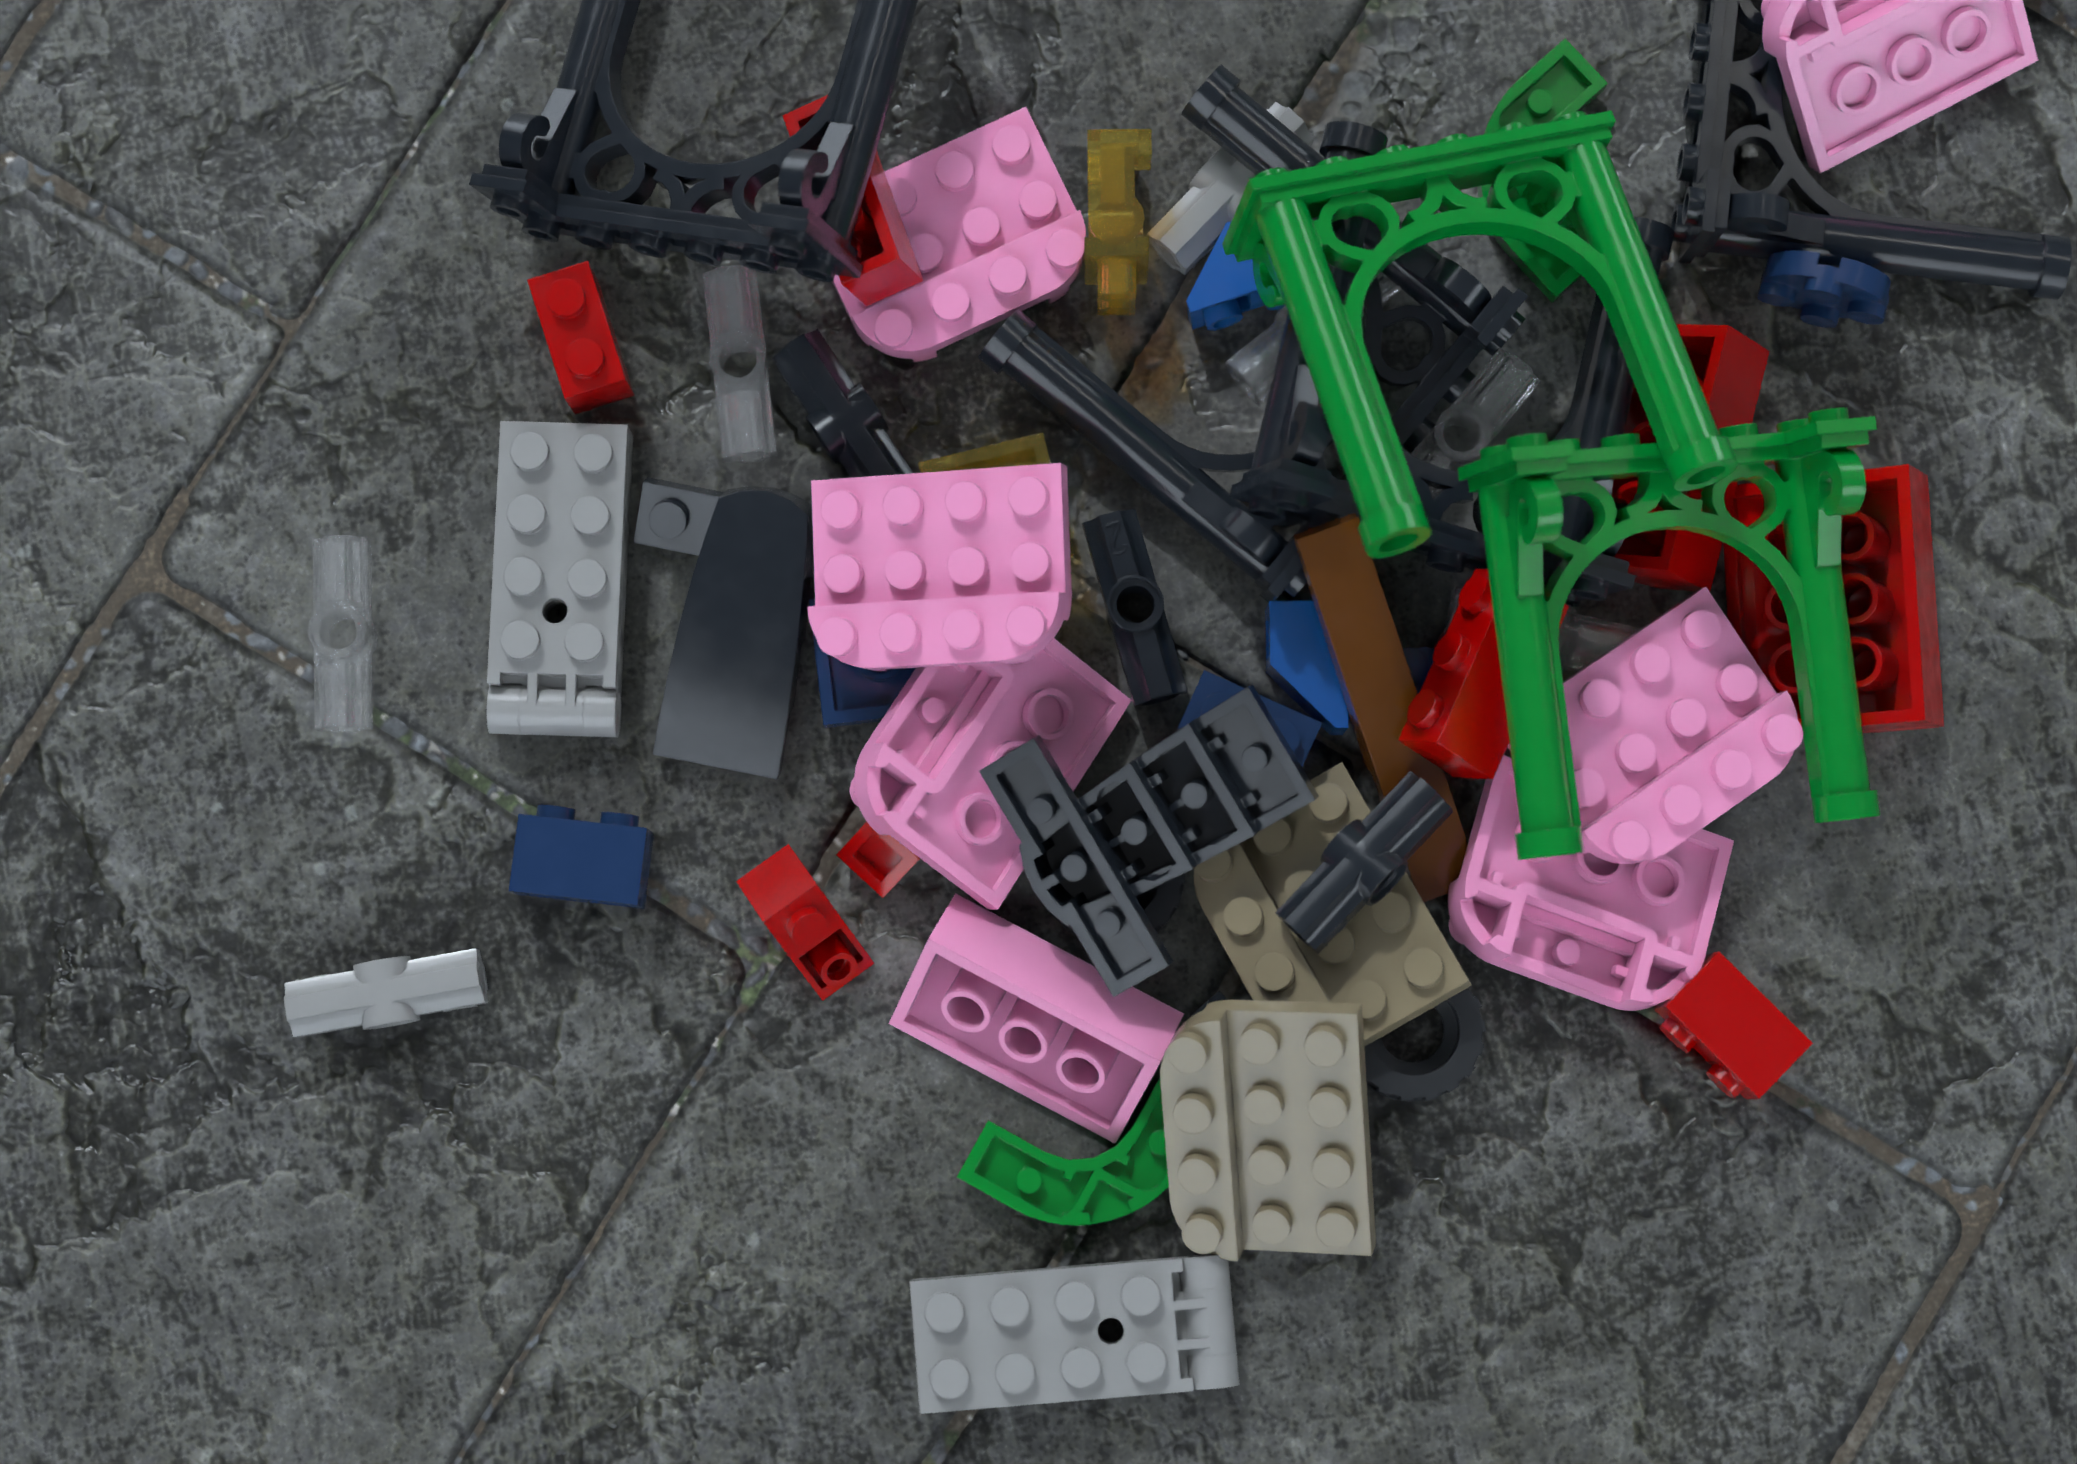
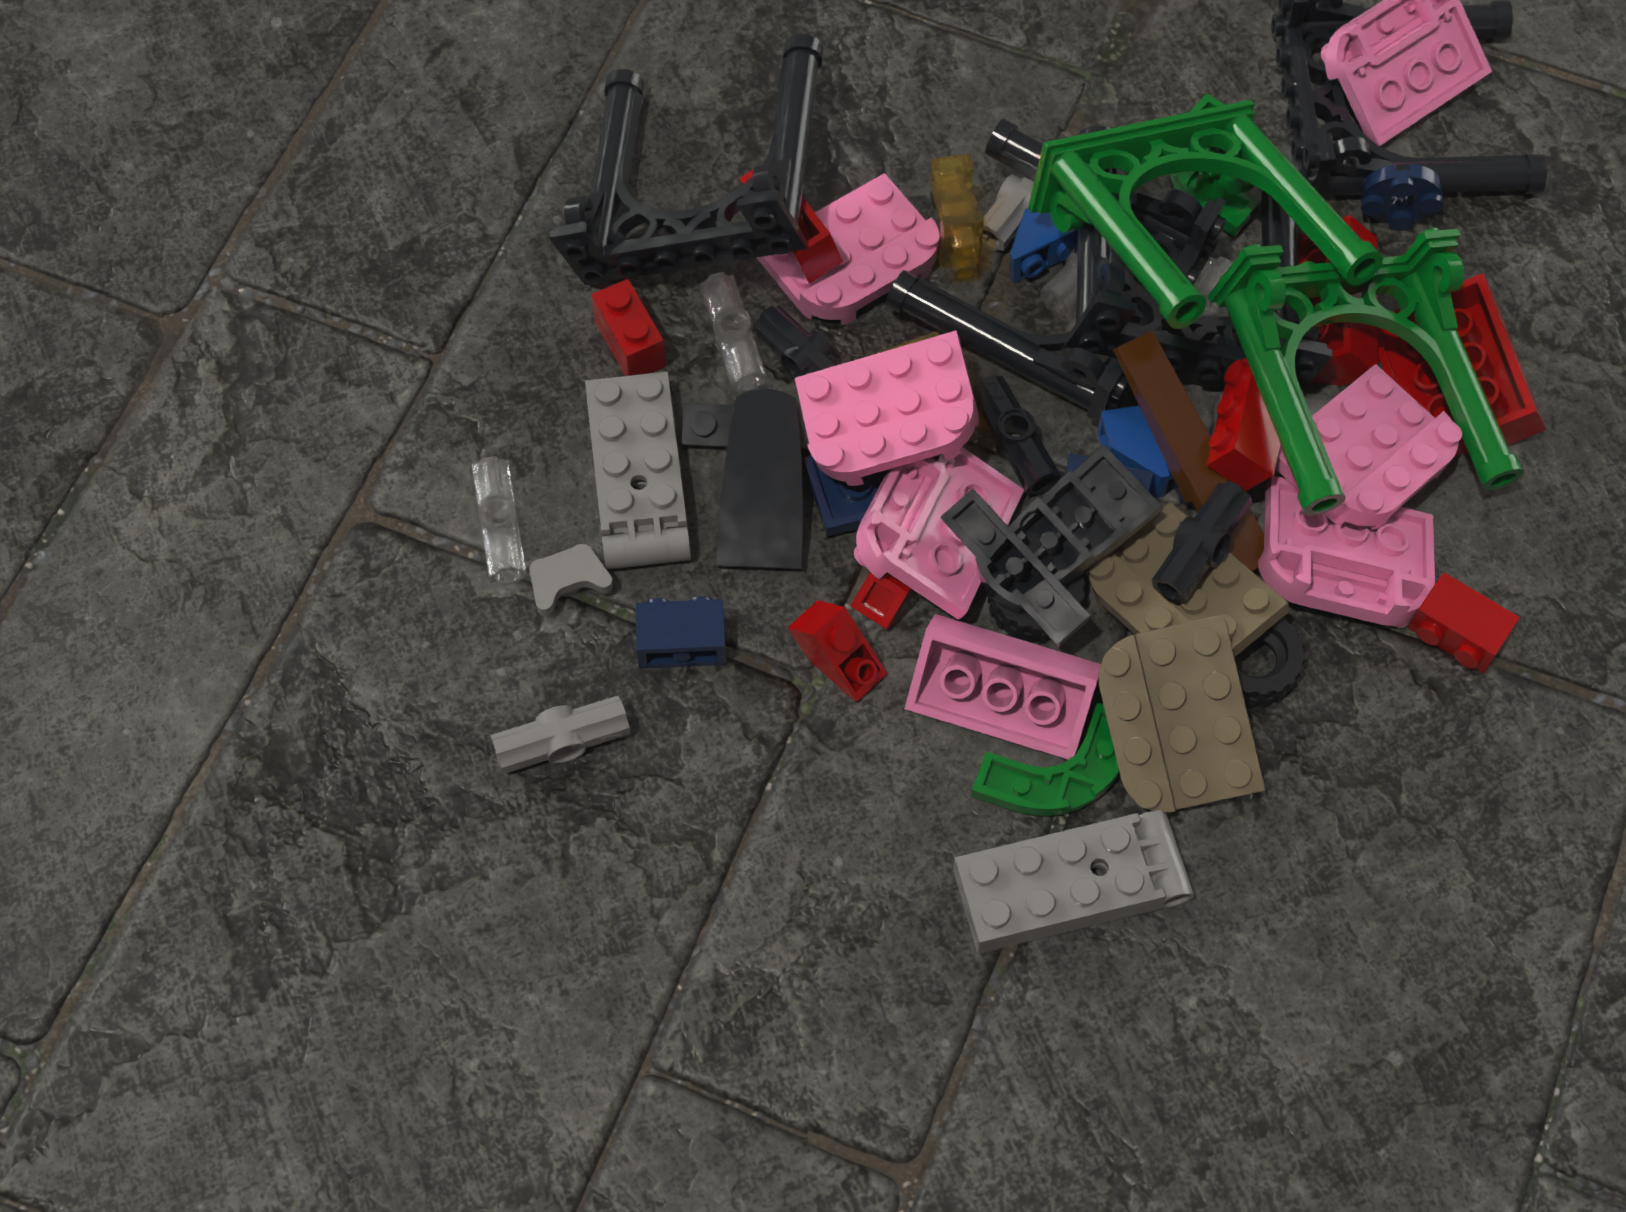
camera: 10 degrees left, 20 degrees down
(428, 735) = (565, 576): none -> light grey piece

